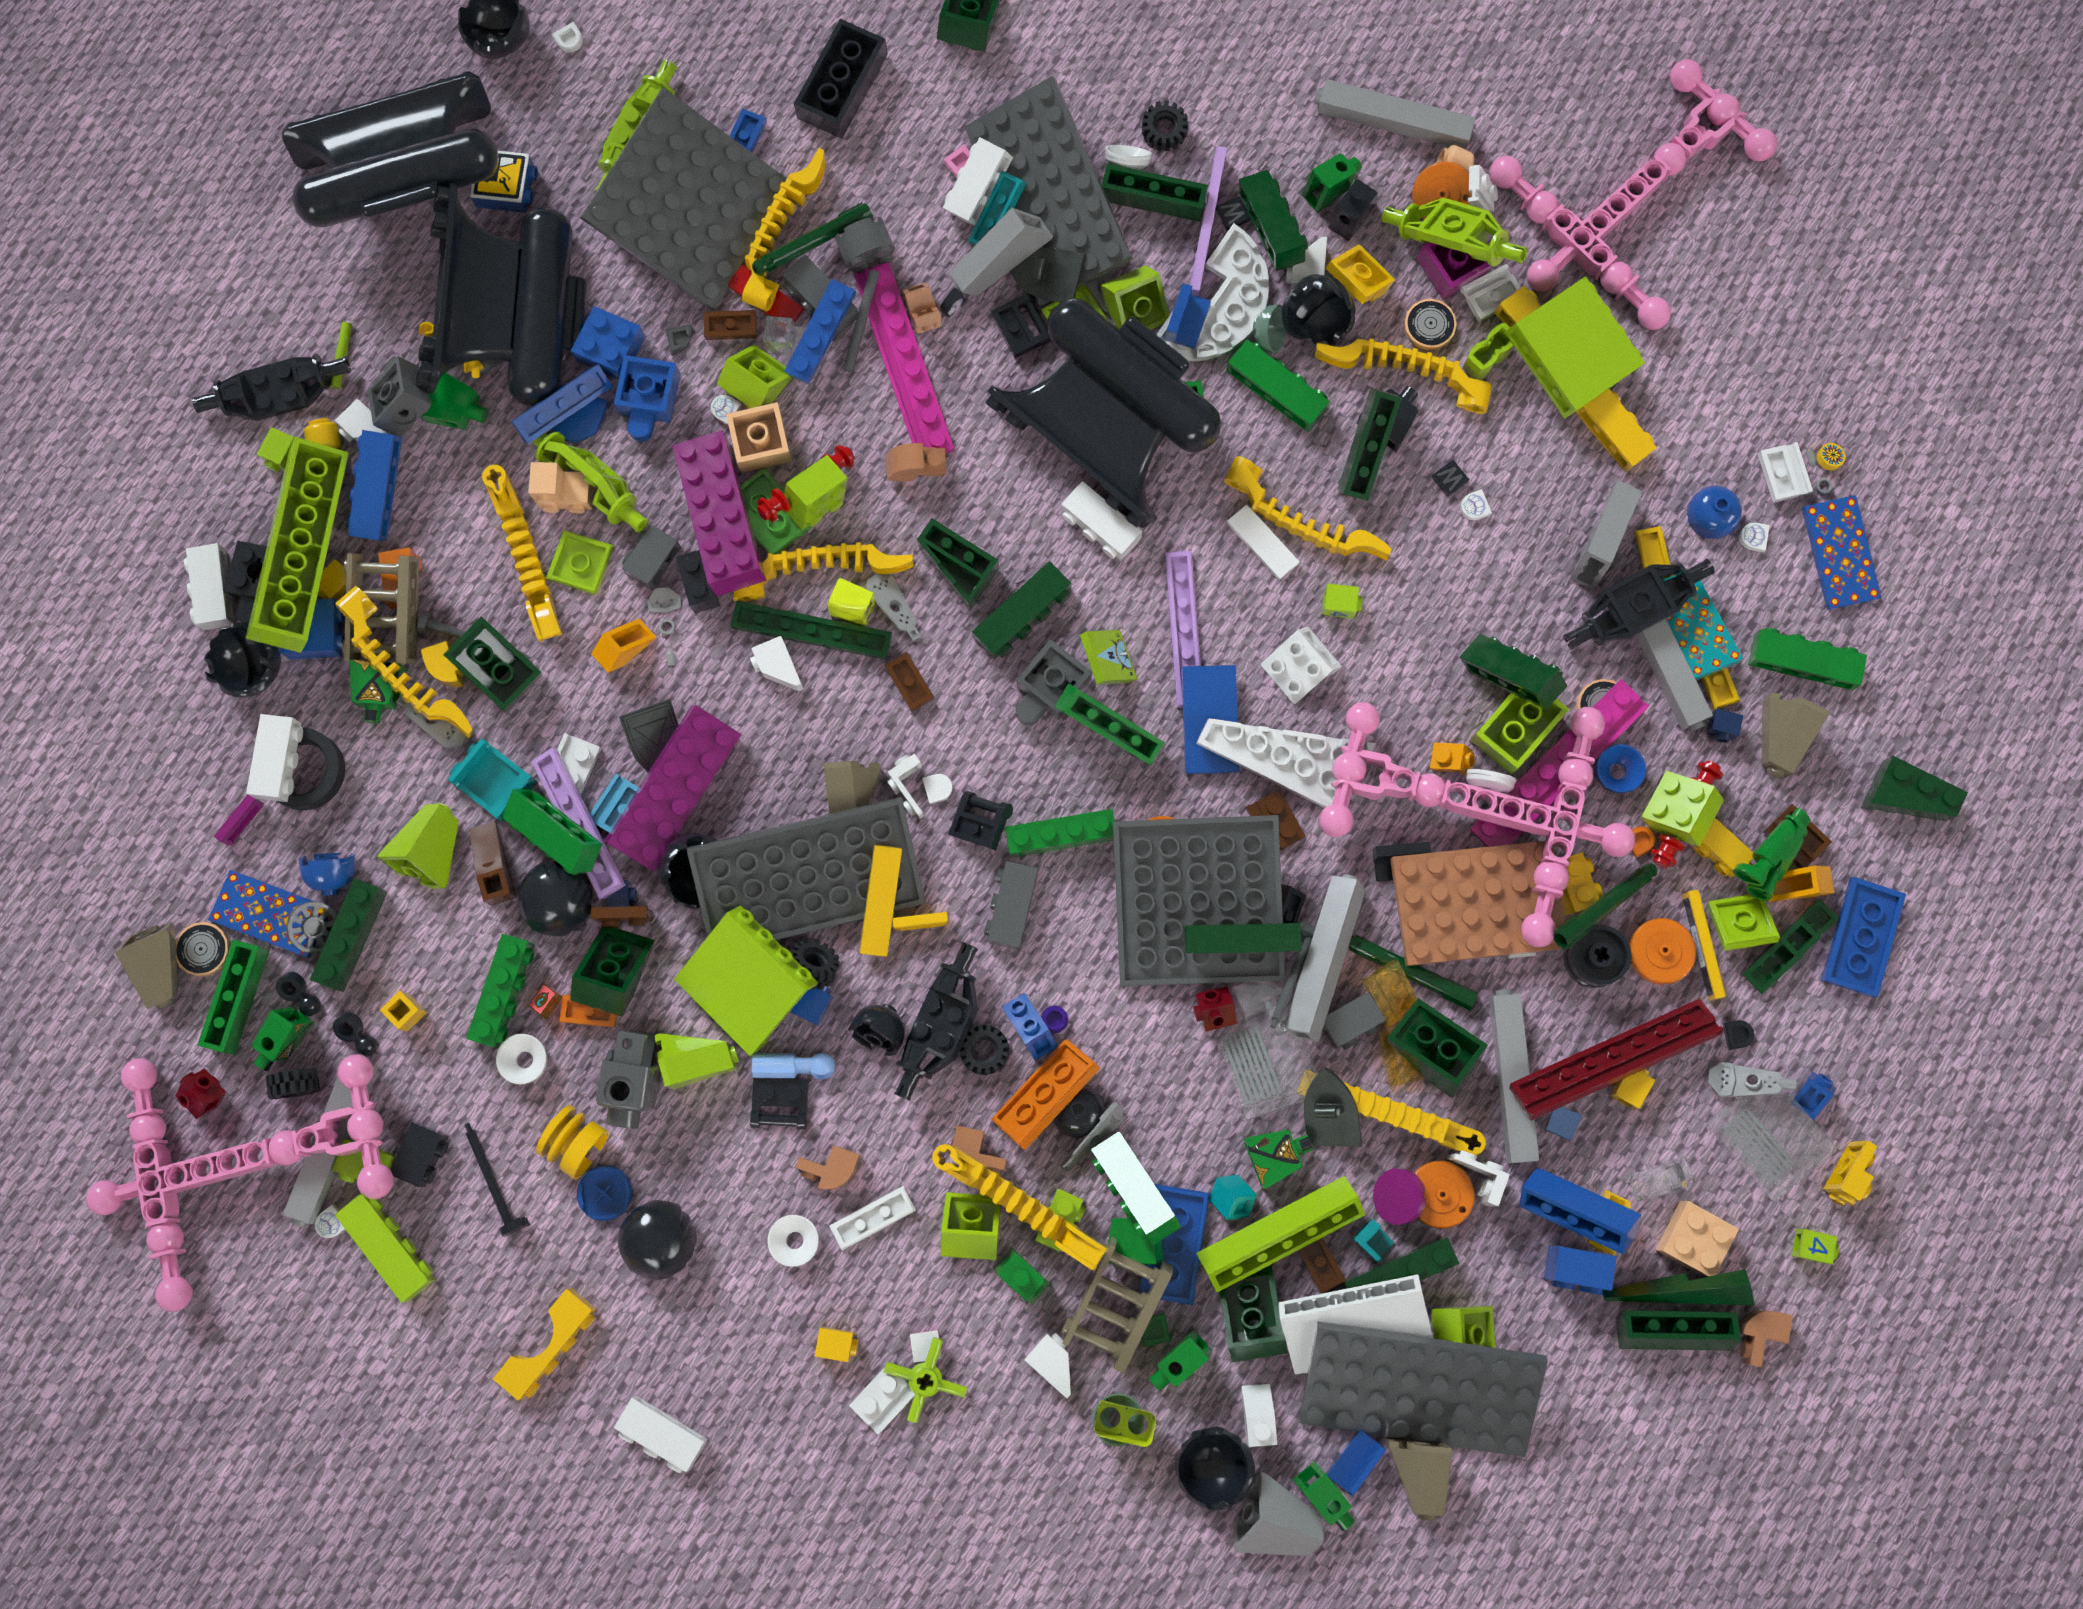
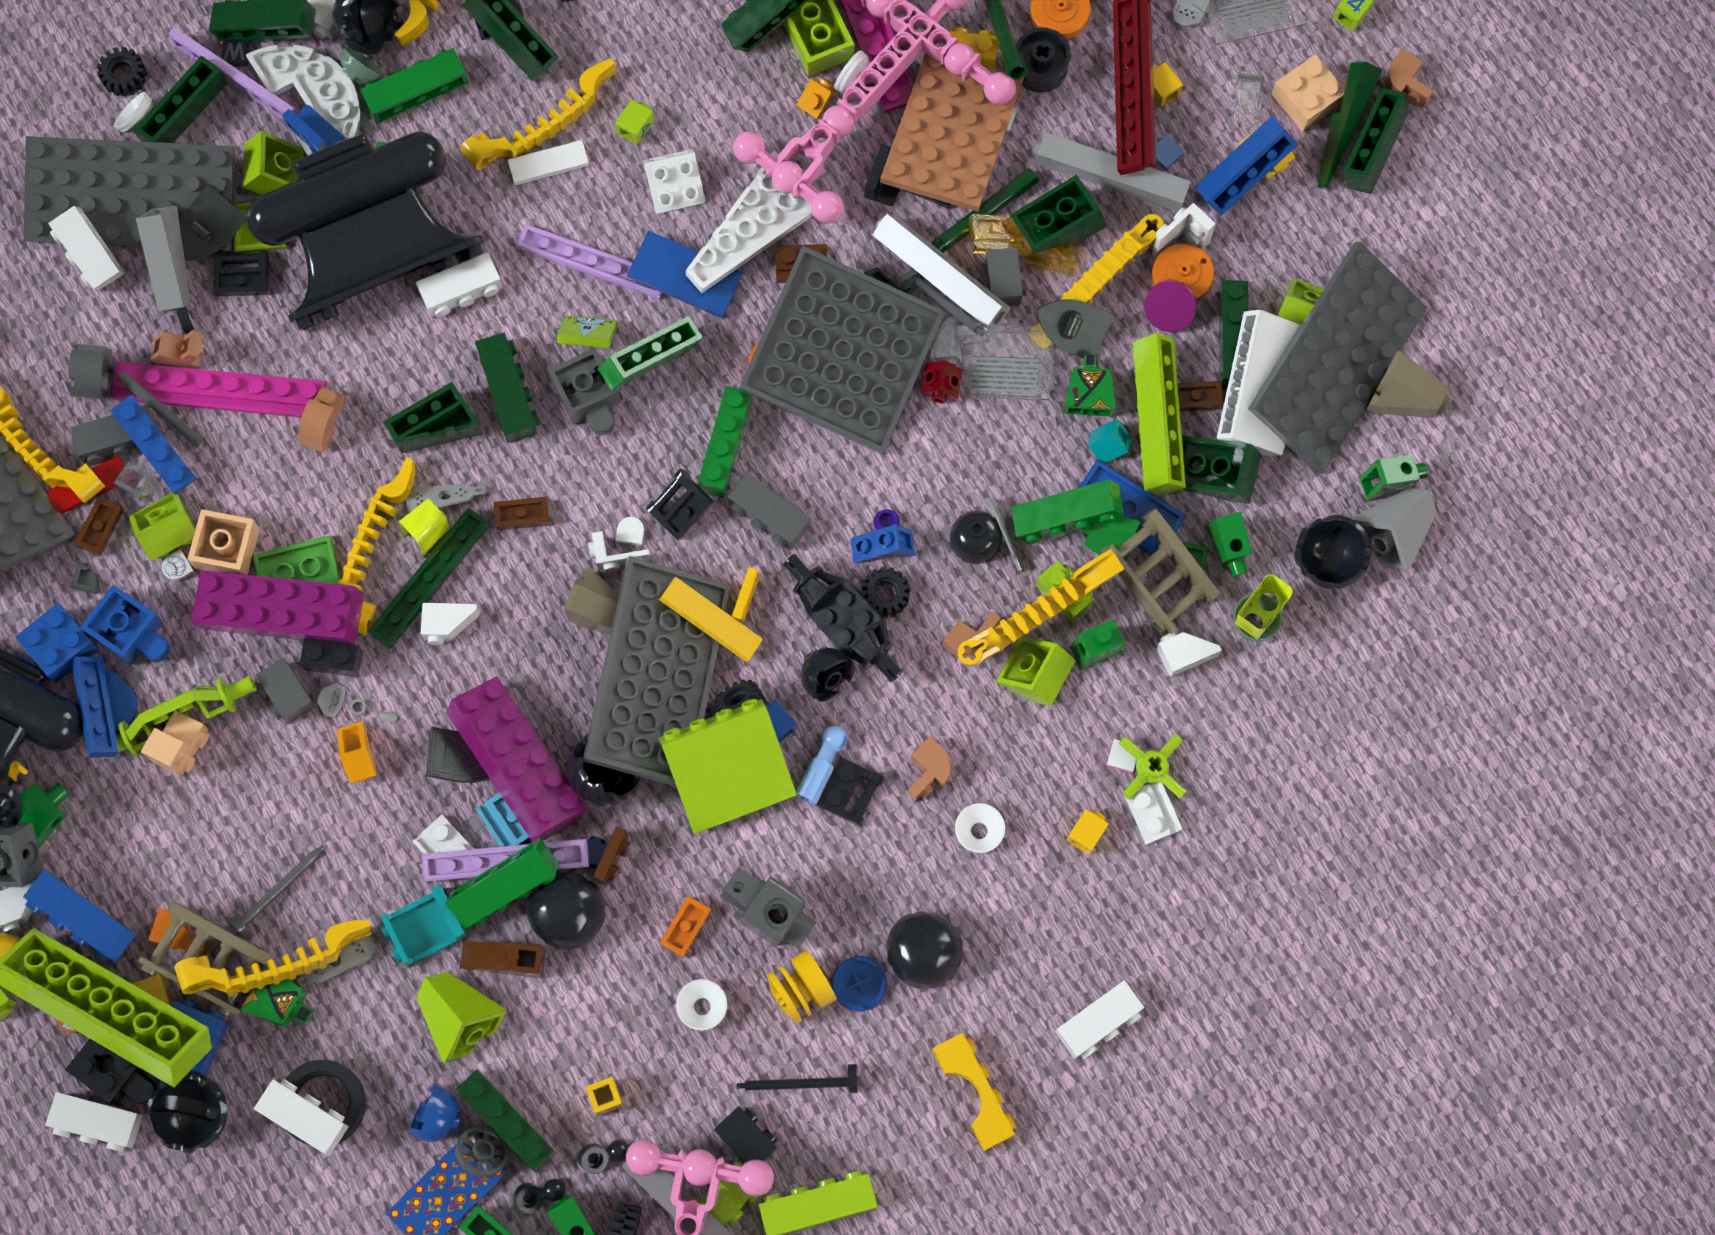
camera: 70 degrees left, 5 degrees down
(239, 820) = (341, 1184): magenta tile -> none
(440, 666) = (292, 926): yellow brick -> none
(493, 664) = (317, 873): dark green slope -> none
(500, 991) = (634, 1003): green brick -> none
(509, 509) = (259, 810): yellow piece -> none
(545, 1001) = (657, 963): clear orange tile -> none
(580, 562) = (254, 760): lime tile -> none
(611, 970) = (659, 887): dark green slope -> none
(693, 1059) = (775, 847): lime slope -> none
(811, 239) = (57, 381): dark green piece -> none
(812, 491) = (303, 514): lime brick -> none
(872, 1218) = (990, 754): white tile -> none
(957, 160) = (55, 258): bright pink plate -> none
(1001, 200) = (121, 244): teal tile -> none
(1045, 1094) = (950, 554): orange tile -> none
(1243, 938) = (894, 324): dark green slope -> none
(1259, 1415) = (1303, 501): white slope -> none
(1356, 1462) = (1375, 438): blue panel -> none
(1373, 1240) = (1196, 346): teal panel -> none
(1579, 1267) = (1294, 190): blue brick -> none

